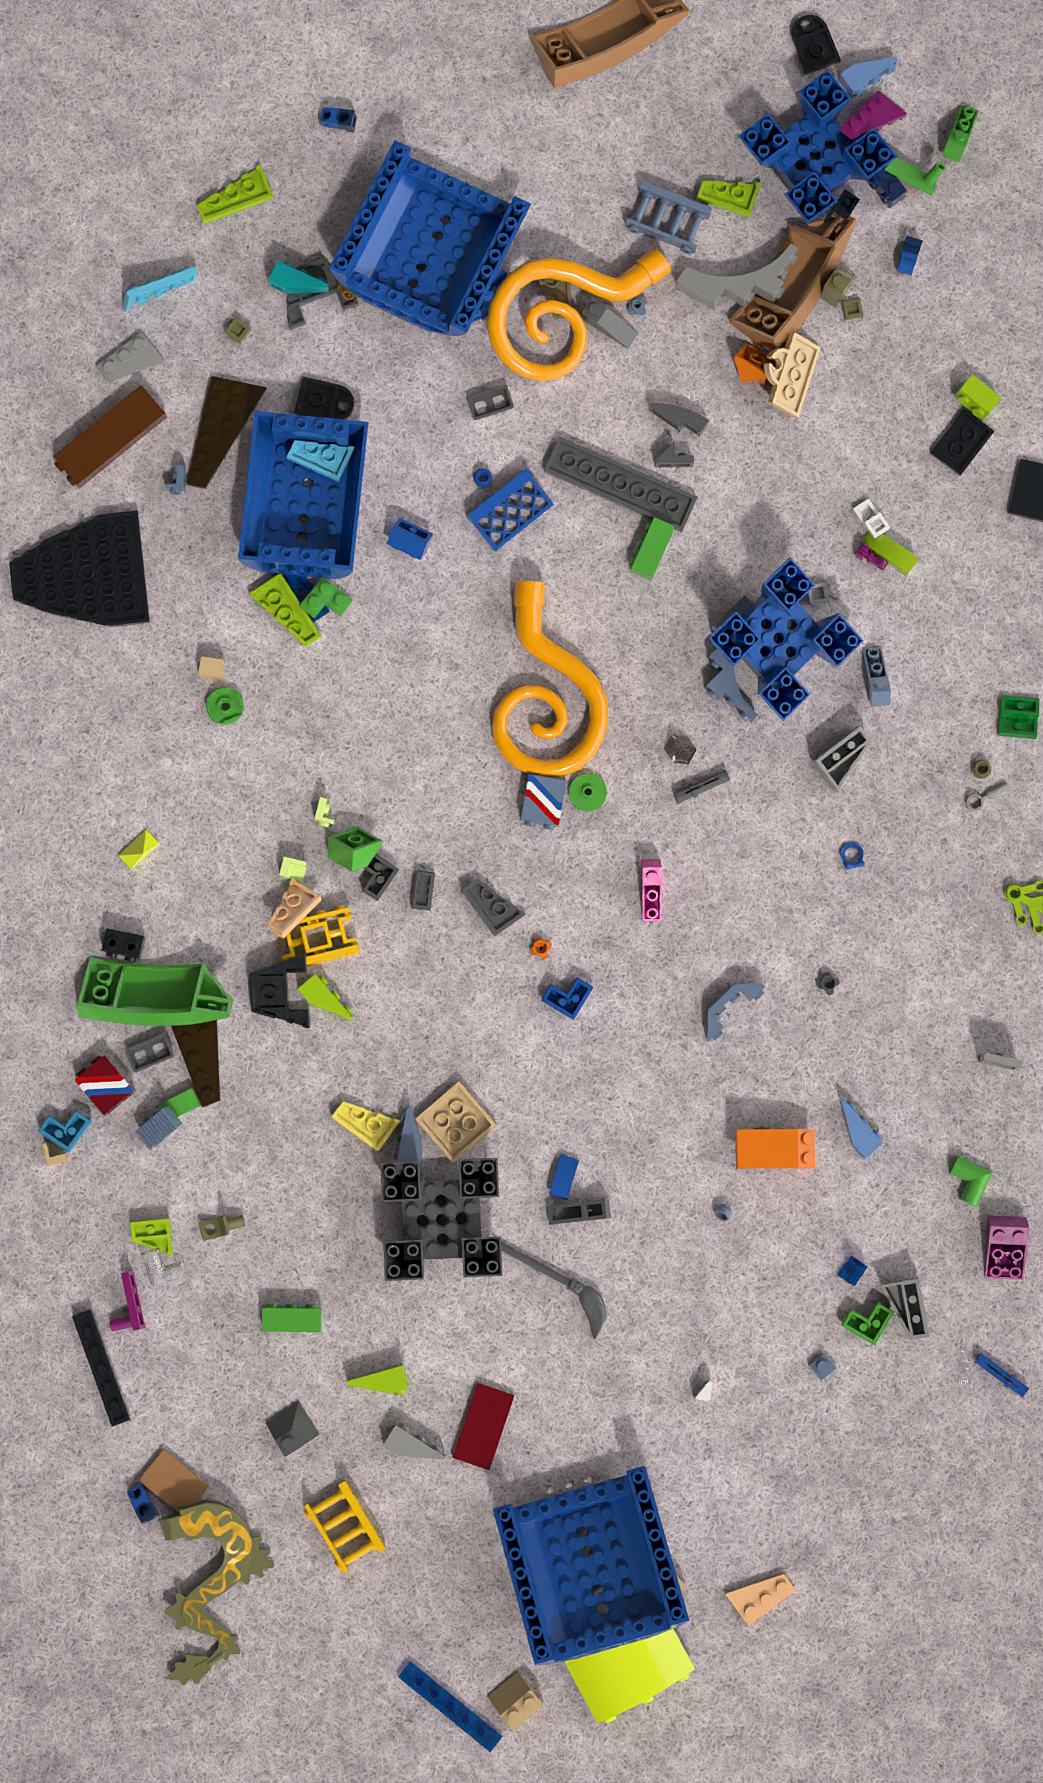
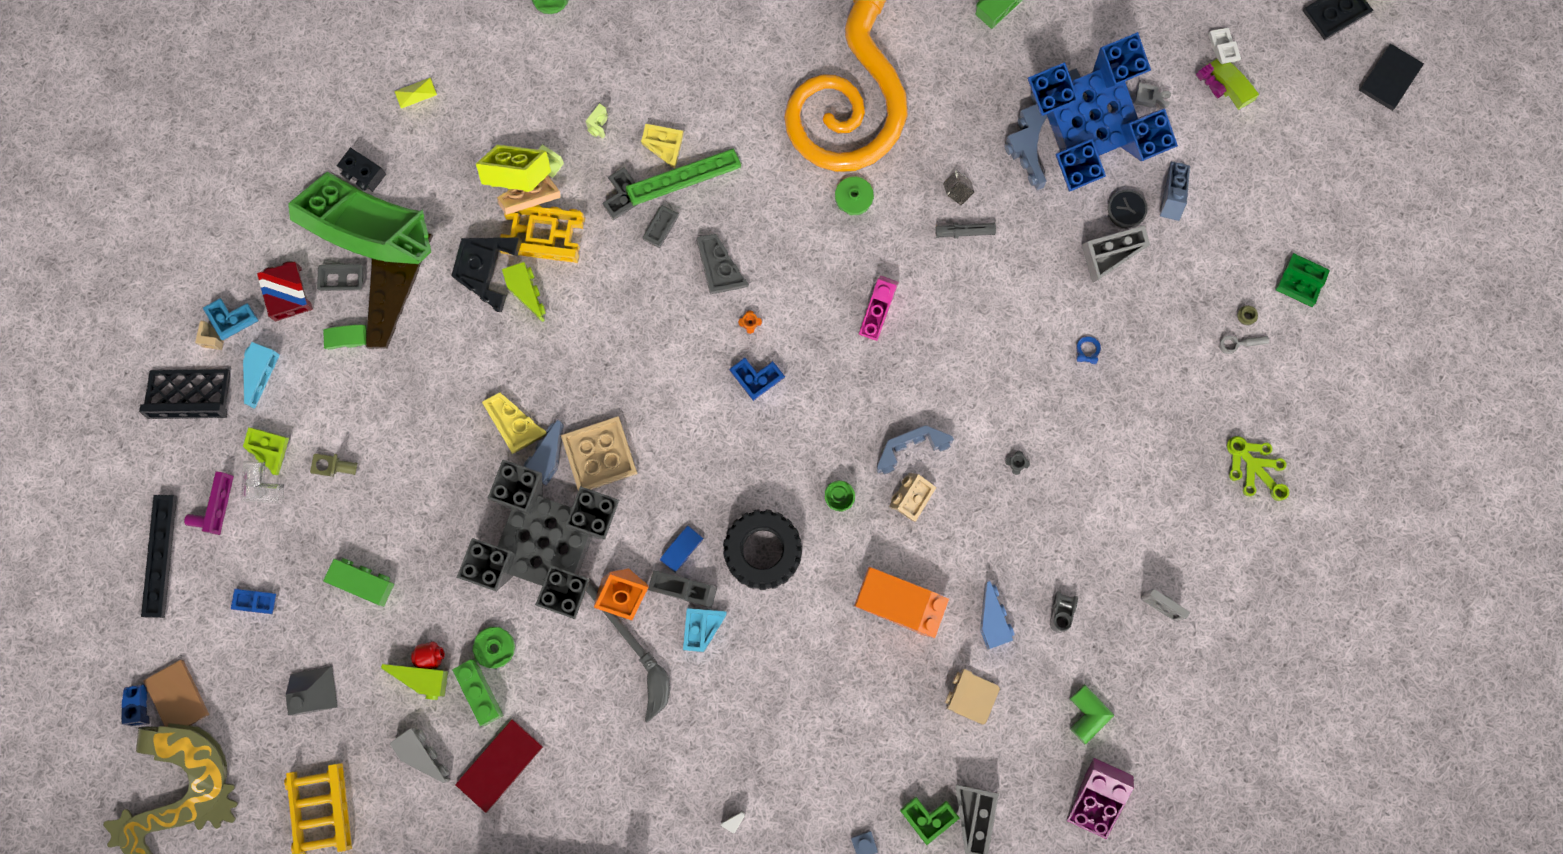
camera: 30 degrees right, 5 degrees down
(63, 1229) = (184, 410): none -> black fence
(112, 1165) = (257, 368): none -> medium azure slope
(158, 1127) = (315, 347): sand blue brick -> none
(204, 1373) = (253, 601): none -> blue slope
(269, 890) = (513, 167): none -> neon yellow brick
(353, 848) = (609, 161): bright green slope -> none
(381, 1358) = (427, 655): none -> red head
(392, 809) = (663, 142): none -> light yellow wing
(425, 836) = (683, 177): none -> bright green tile
(431, 1318) = (484, 642): none -> bright green plate
(439, 1372) = (477, 692): none -> bright green brick
(527, 1237) = (621, 593): none -> orange slope
(543, 801) = (807, 186): panel -> none
(609, 1239) = (701, 628): none -> medium azure wing
(655, 1131) = (752, 523): none -> black tyre
(685, 1070) = (840, 491): none -> bright green hair
(723, 1212) = (825, 647): sand blue hinge -> none
(747, 1050) = (912, 496): none -> tan bracket
(839, 709) = (1127, 209): none -> black tile
(852, 1270) = (932, 758): clear blue panel -> none
(866, 1205) = (972, 696): none -> tan bracket
(916, 1099) = (1064, 608): none -> dark grey piece

